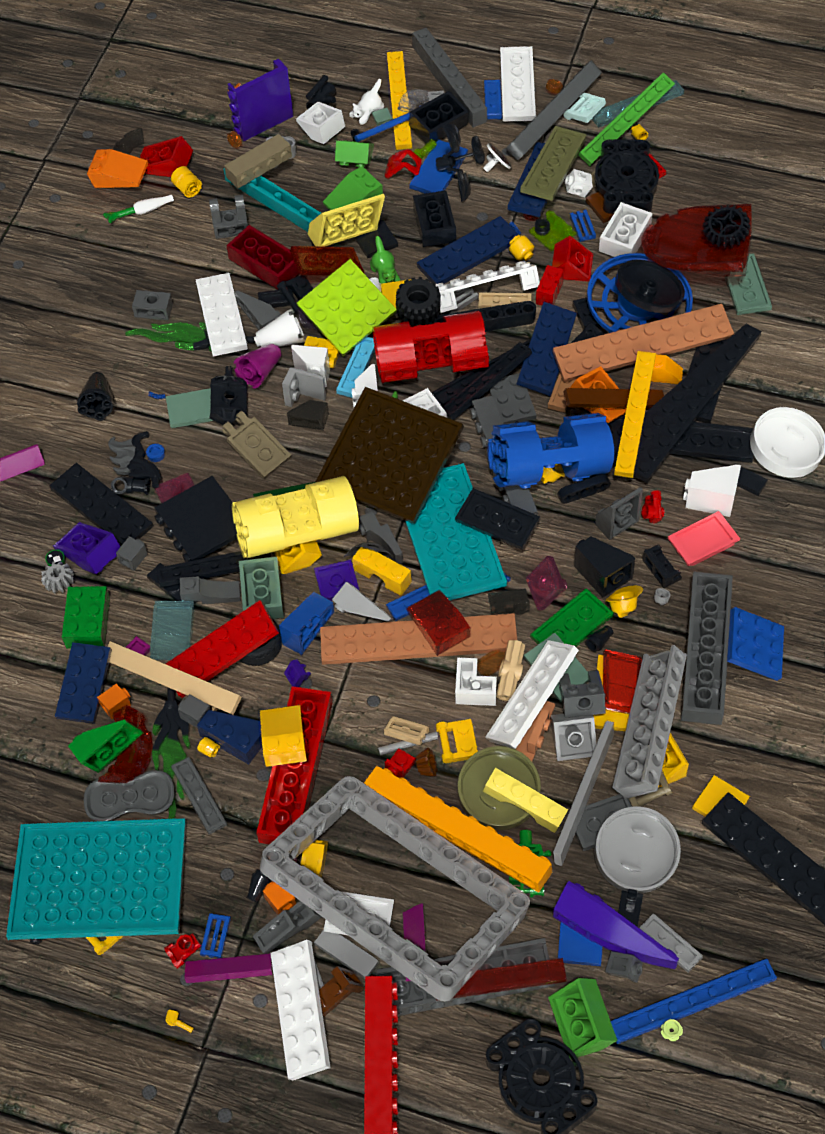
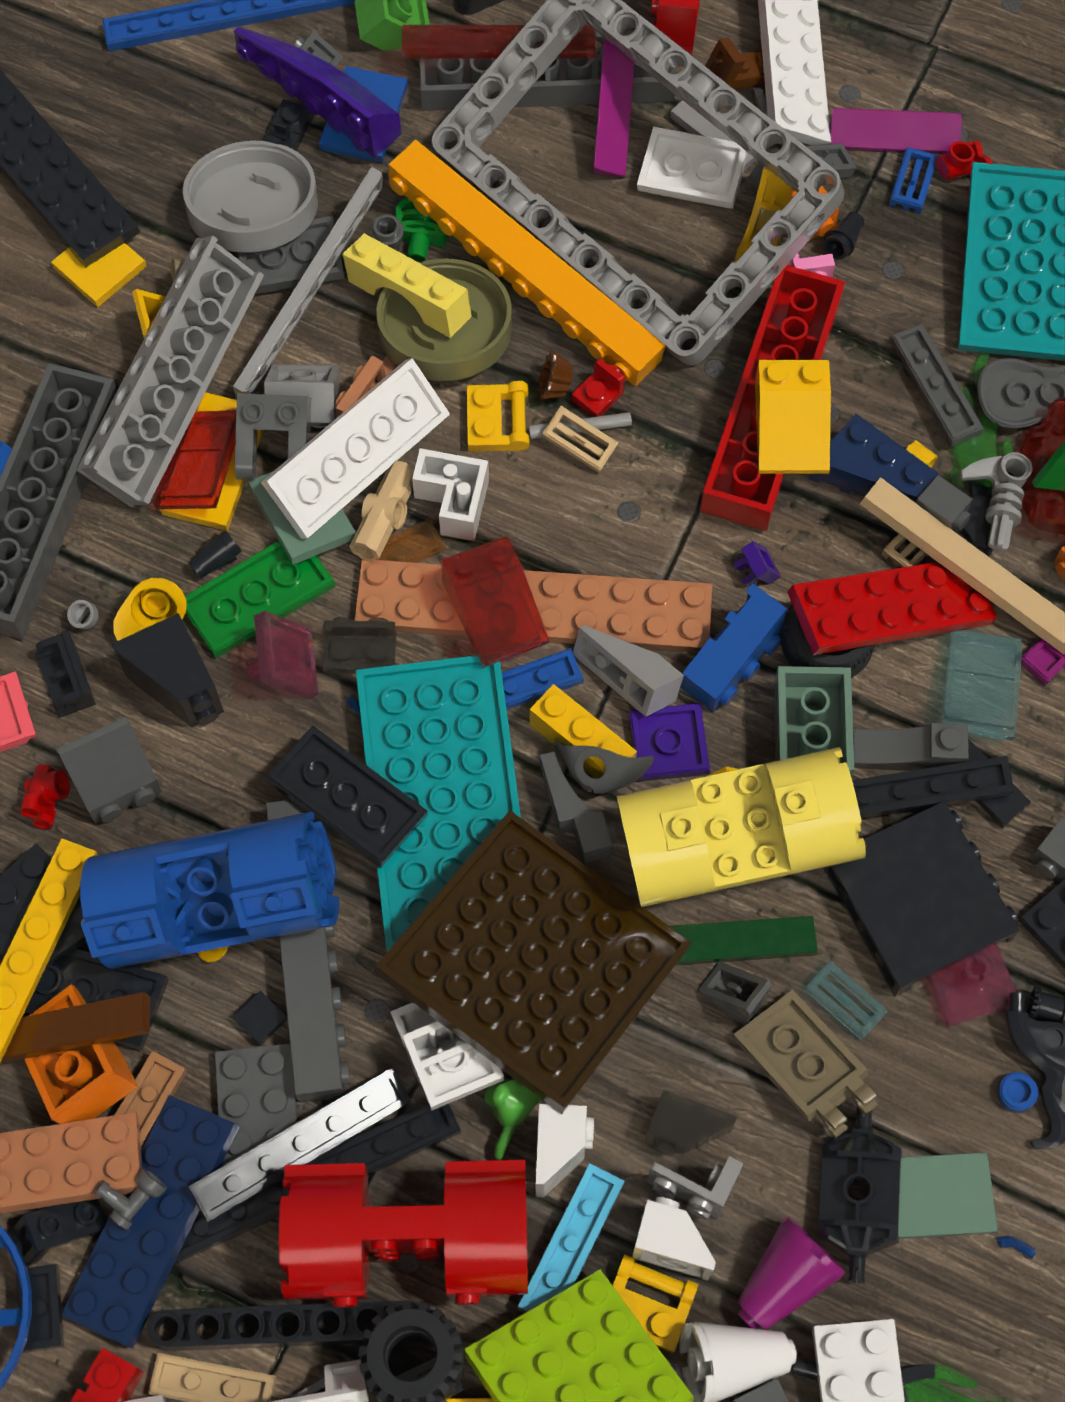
camera: 175 degrees left, 10 degrees up
(157, 724) = (1006, 493): none -> light grey piece
(172, 1020) = (979, 76): yellow hand -> none
(234, 483) = (841, 1015): none -> clear light blue tile
(290, 469) = (735, 991): none -> dark grey slope
(544, 833) = (388, 231): none -> dark grey cone
(549, 350) = (125, 1207): none -> dark grey piece
(669, 939) = (237, 85): light grey tile -> none

